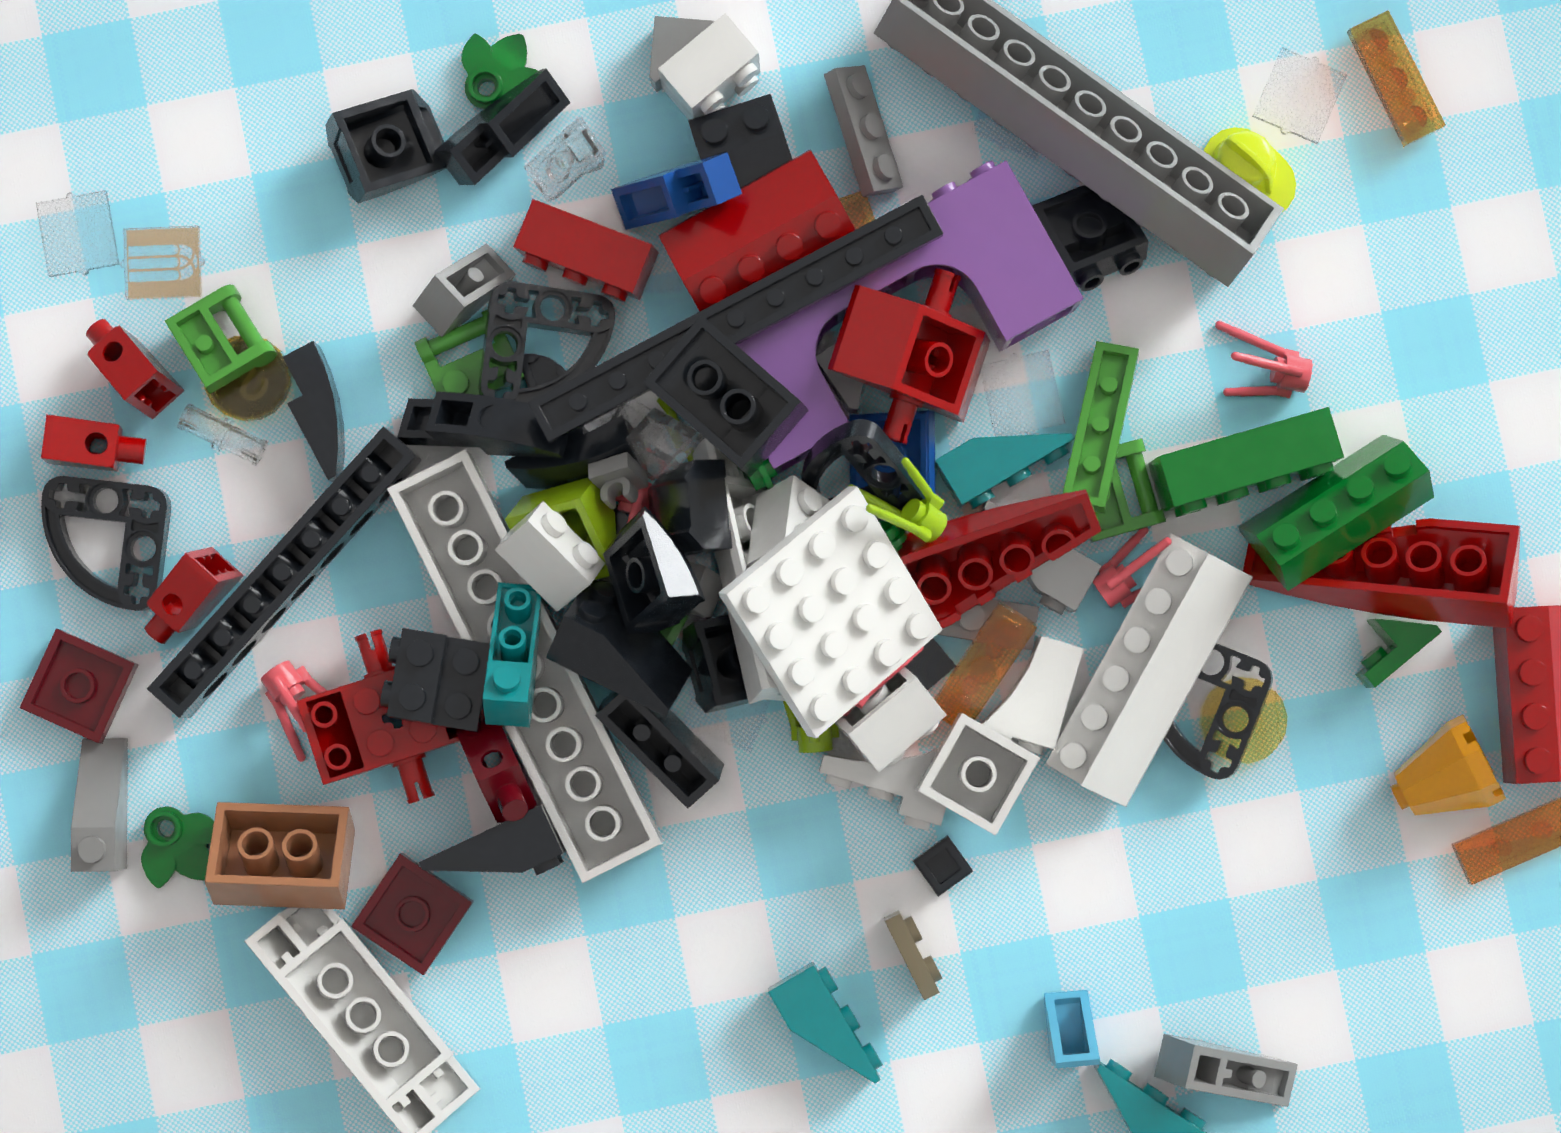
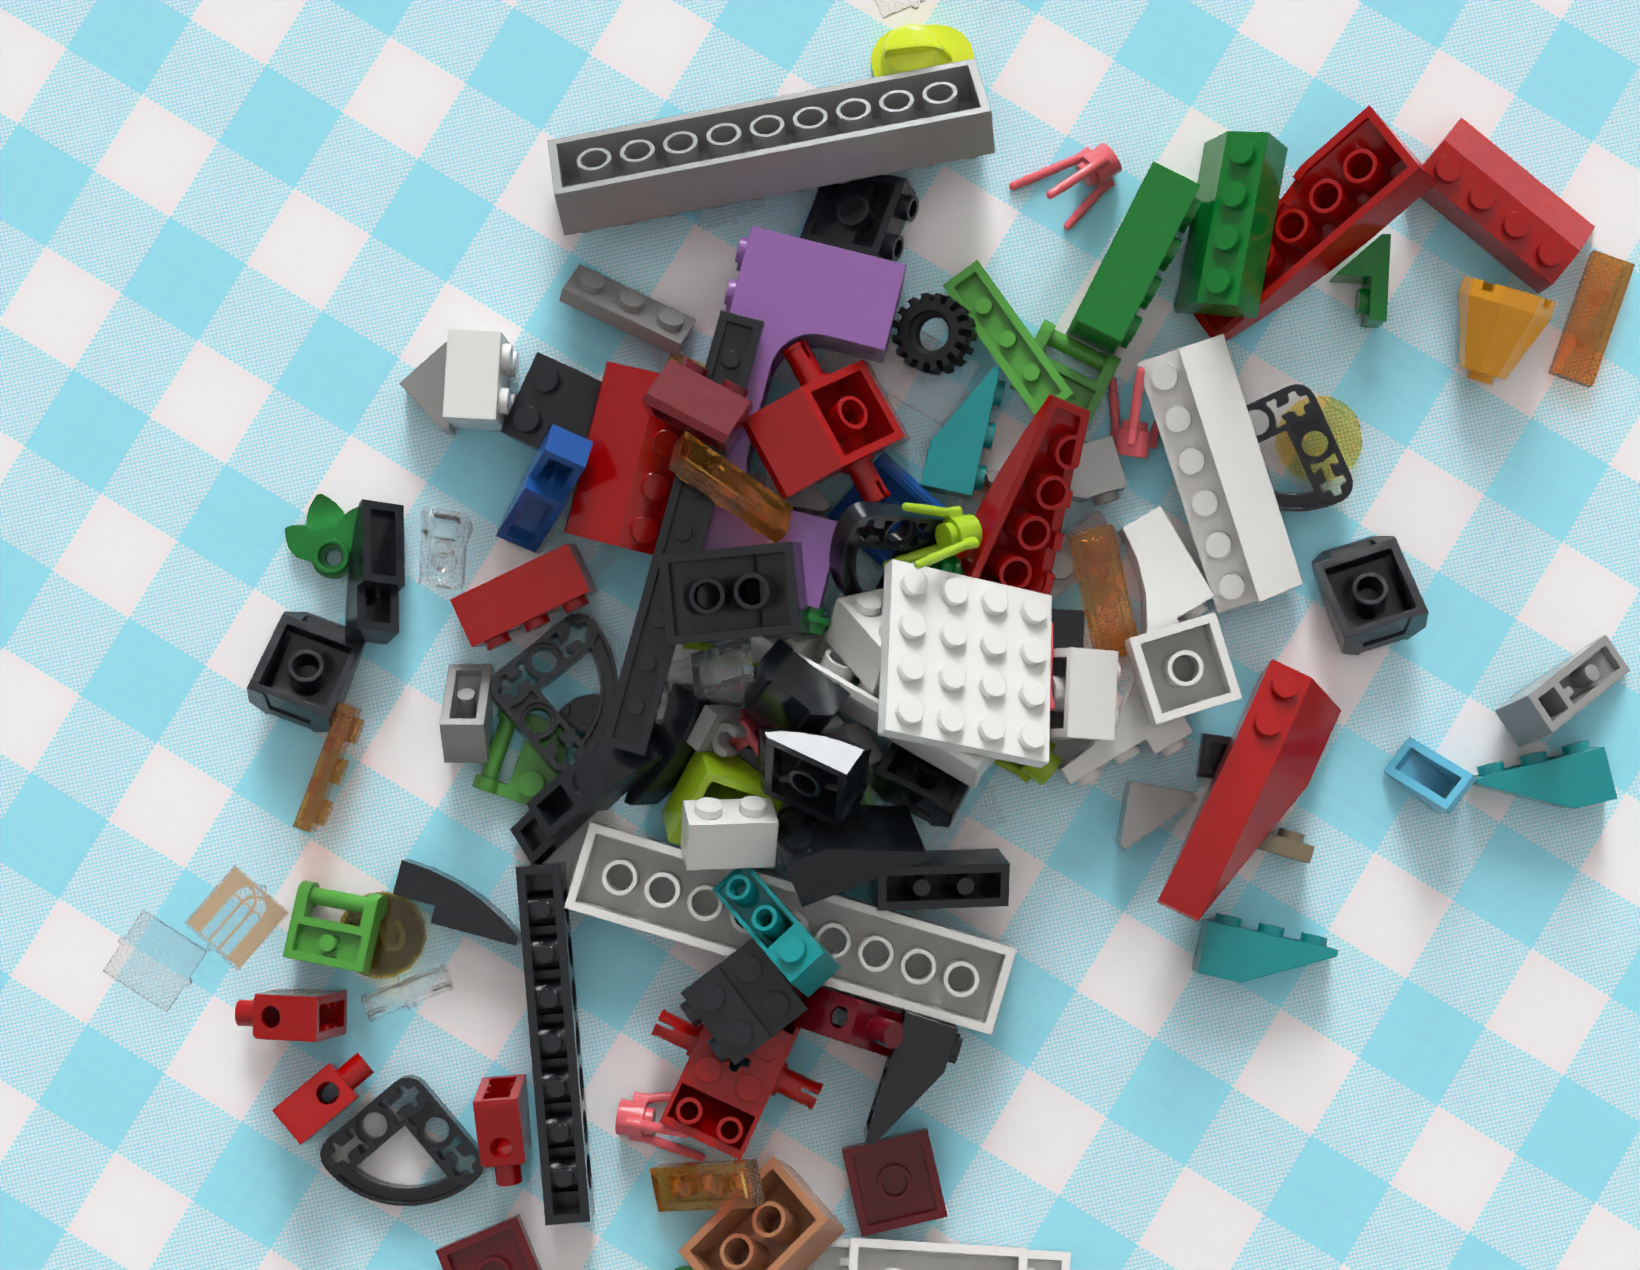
camera: 45 degrees left, 0 degrees up
(283, 779) = (707, 1185): none -> clear orange plate
(331, 227) = (329, 768): none -> clear orange plate
(799, 321) = (730, 487): none -> clear orange plate
(837, 242) = (698, 405): none -> dark red slope
(855, 846) = (1146, 809): none -> light grey slope
(941, 907) = (1253, 786): none -> red wedge
(1038, 349) = (909, 330): none -> black tyre
(1163, 862) = (1369, 594): none -> black slope

